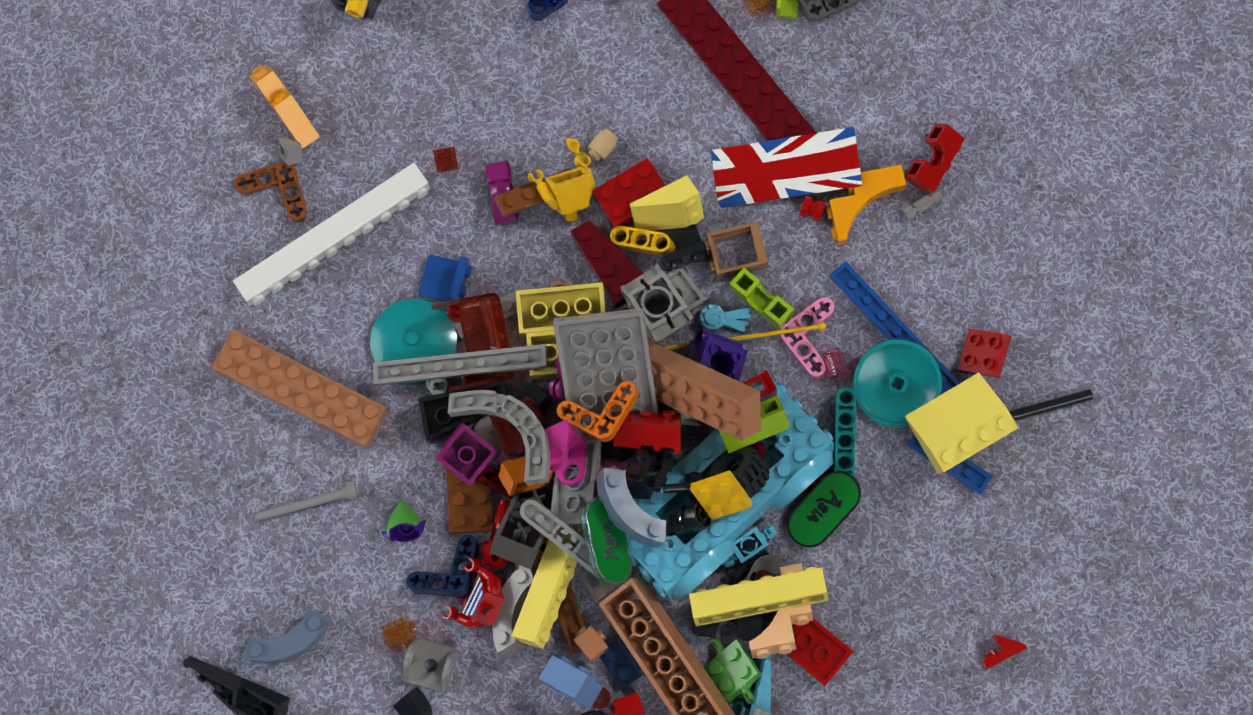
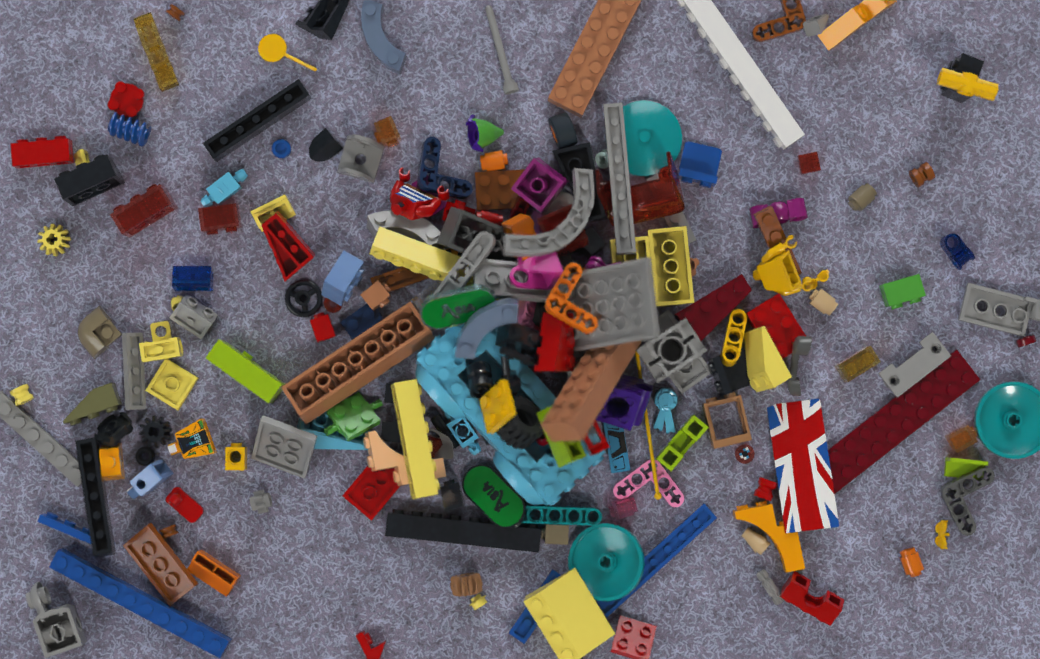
camera: 80 degrees right, 10 degrees up
(403, 430) = (563, 130): none -> black wheel
(436, 509) = (494, 161): none -> orange brick
(461, 38) = (922, 174): none -> dark orange wheel
(485, 102) = (862, 197): none -> dark tan brick
(591, 60) = (902, 290): none -> bright green brick
(653, 165) = (800, 346): none -> dark grey piece
(672, 108) = (857, 364): none -> clear yellow brick
(675, 45) = (916, 366): none -> light grey brick
(773, 231) = (744, 454): none -> clear red tile
(779, 370) = (618, 450): none -> dark azure tile
(824, 554) = (452, 495): none -> black slope
(864, 548) = (461, 531): none -> black brick
(866, 440) = (555, 534): none -> dark tan brick
(867, 21) = (940, 540): none -> yellow piece
(872, 218) = (756, 541): none -> tan cone
(892, 52) = (911, 562): none -> orange brick
(925, 541) = (466, 584): none -> medium nougat gear
(945, 529) = (478, 601): none -> light yellow plate

